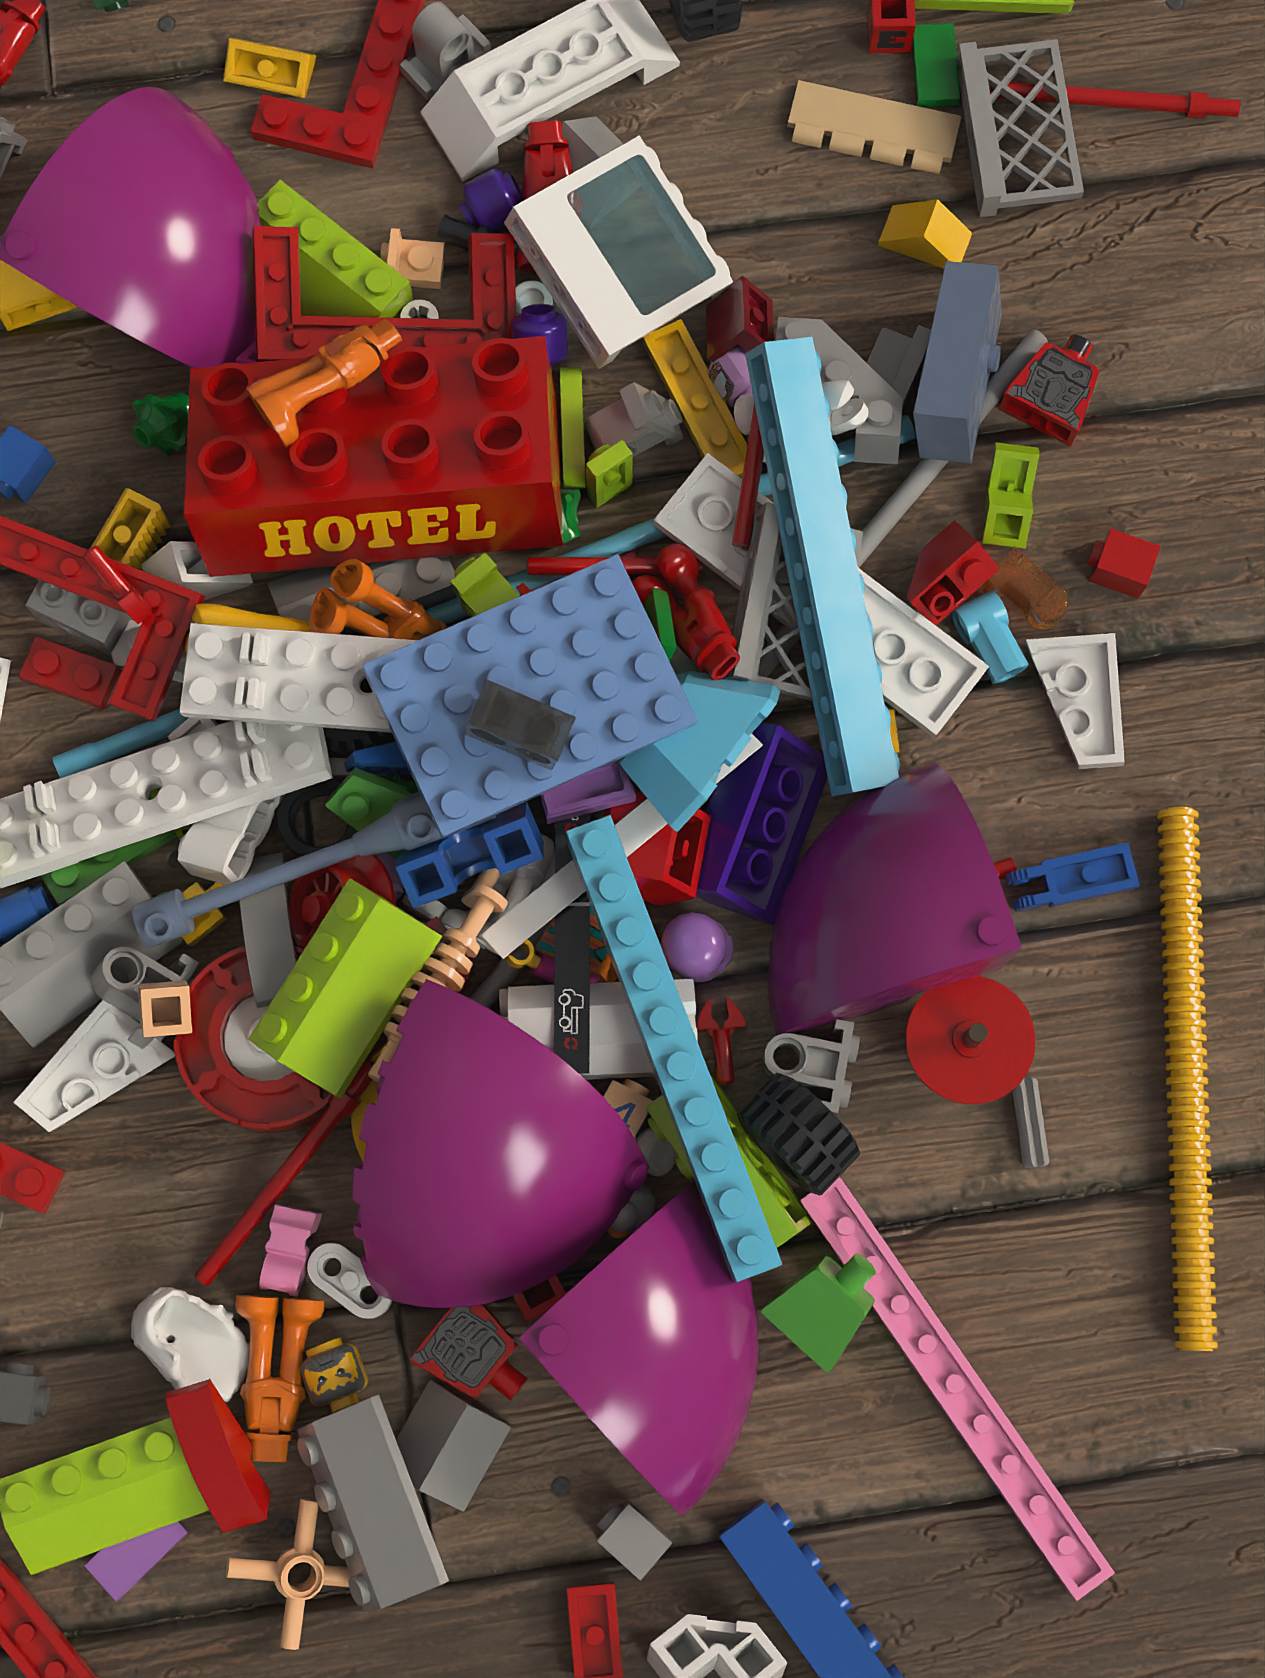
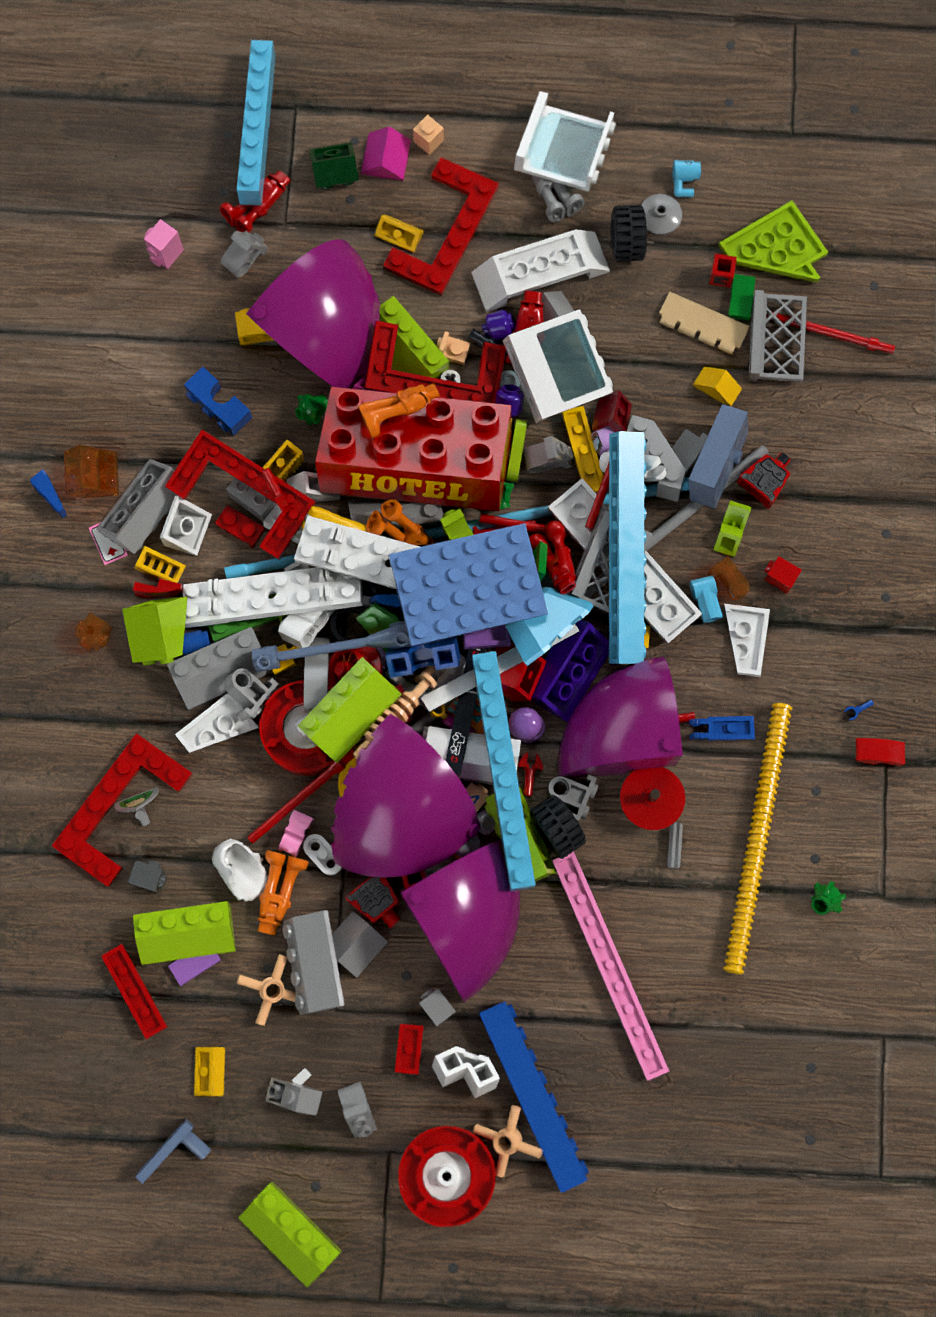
camera: 10 degrees right, 0 degrees up
(165, 1008) = (259, 702): light nougat brick -> none
(218, 1456) = (243, 924): red slope -> none
(333, 1374) = (306, 898): head -> none
(441, 47) = (489, 242): light grey pin -> none
(519, 725) = (459, 598): clear smoke brick -> none
(609, 472) = (530, 478): lime plate -> none
(823, 1307) = (553, 914): bright green torso -> none
(948, 573) = (691, 562): red slope -> none

